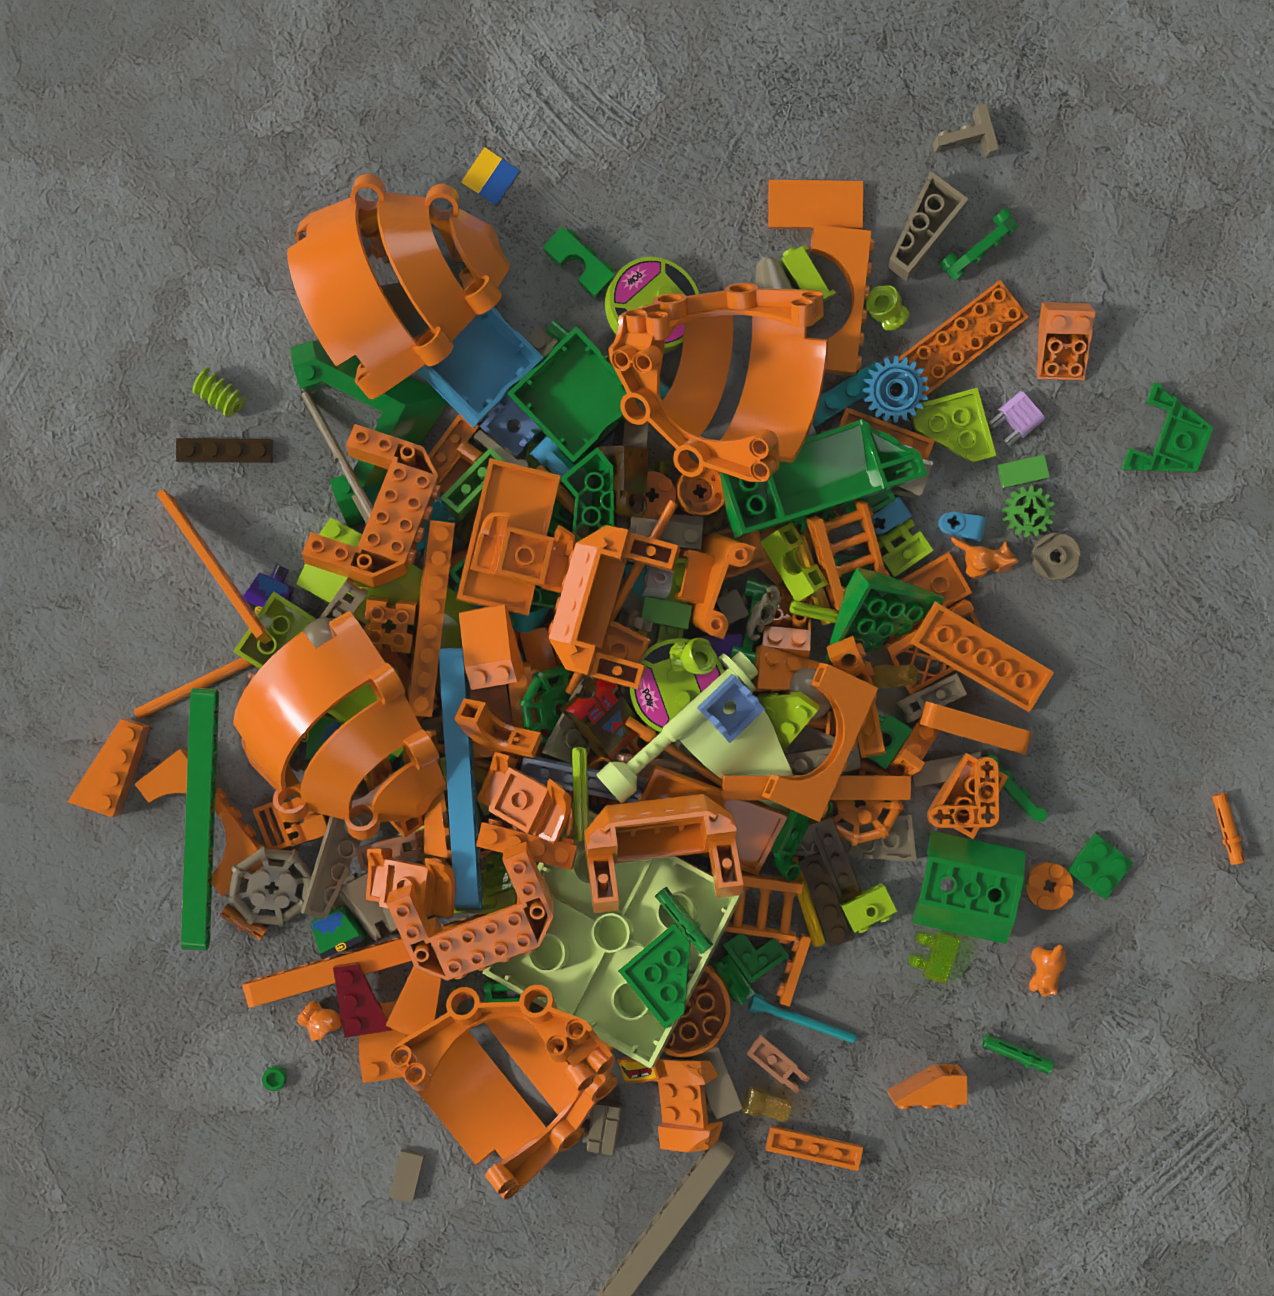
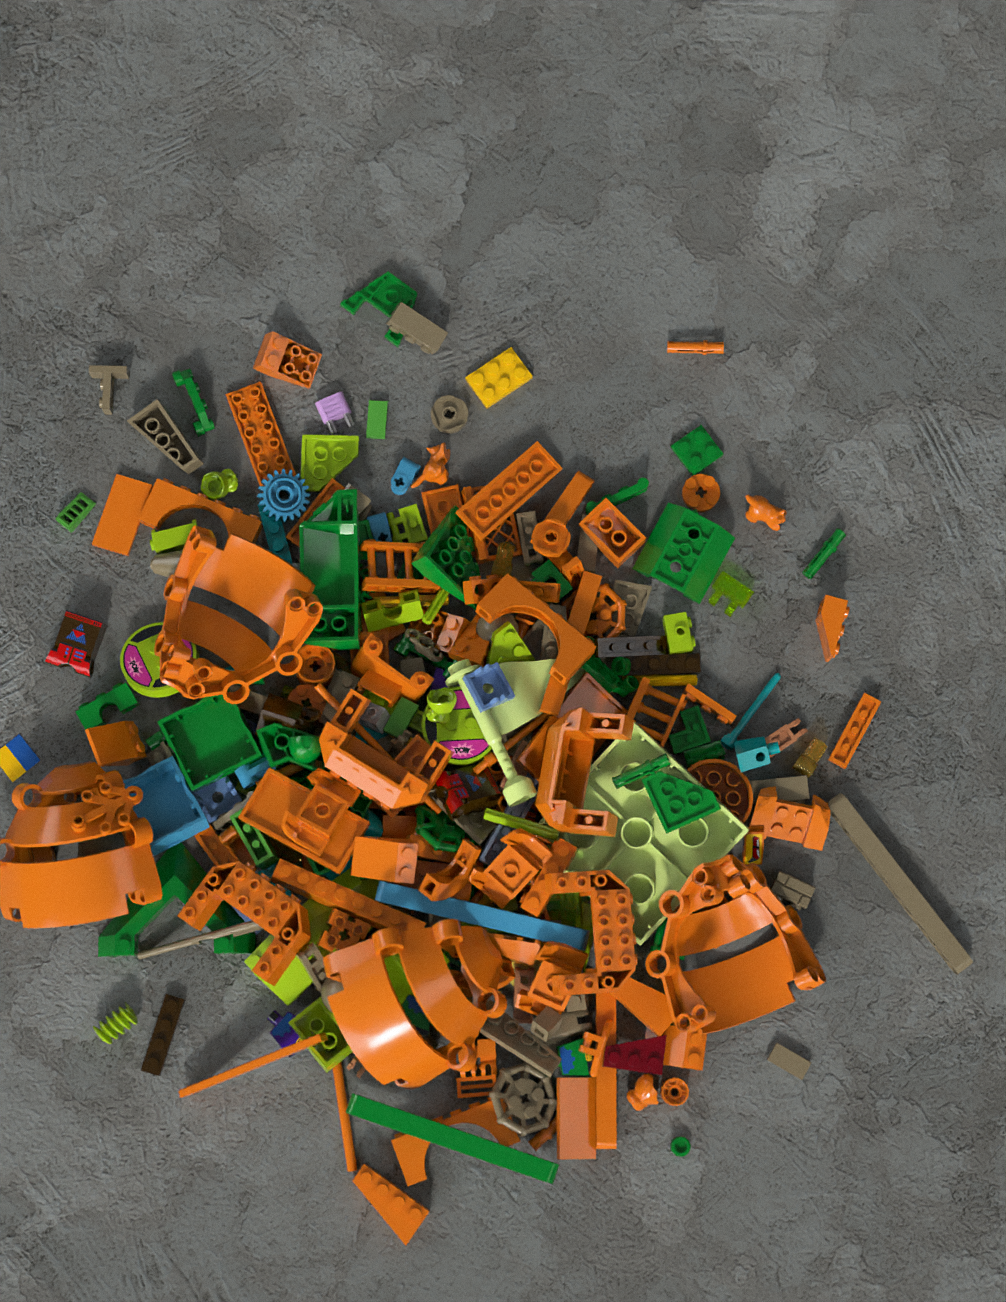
camera: 80 degrees left, 10 degrees down
(268, 951) = (576, 1118): none -> orange tile
(323, 1056) = (668, 1085): none -> orange wheel
(354, 958) = (600, 1046): none -> orange piece
(361, 889) = (546, 1023): none -> dark tan panel
(451, 302) = (108, 806): none -> orange plant
(536, 286) = (116, 744): none -> orange slope
(592, 511) = (305, 748): none -> green helmet
(644, 202) = (77, 643): none -> piece
(750, 1041) = (754, 752): none -> teal torso
(805, 140) = (71, 507): none -> bright green slope
(808, 853) = (621, 666): none -> green tile
(927, 717) = (560, 533): none -> orange plate
(974, 810) = (624, 528): orange beam -> none
(1028, 502) = (416, 427): bright green gear -> none
(1119, 602) = (498, 378): none -> yellow plate
(1151, 484) = (416, 328): none -> dark tan brick

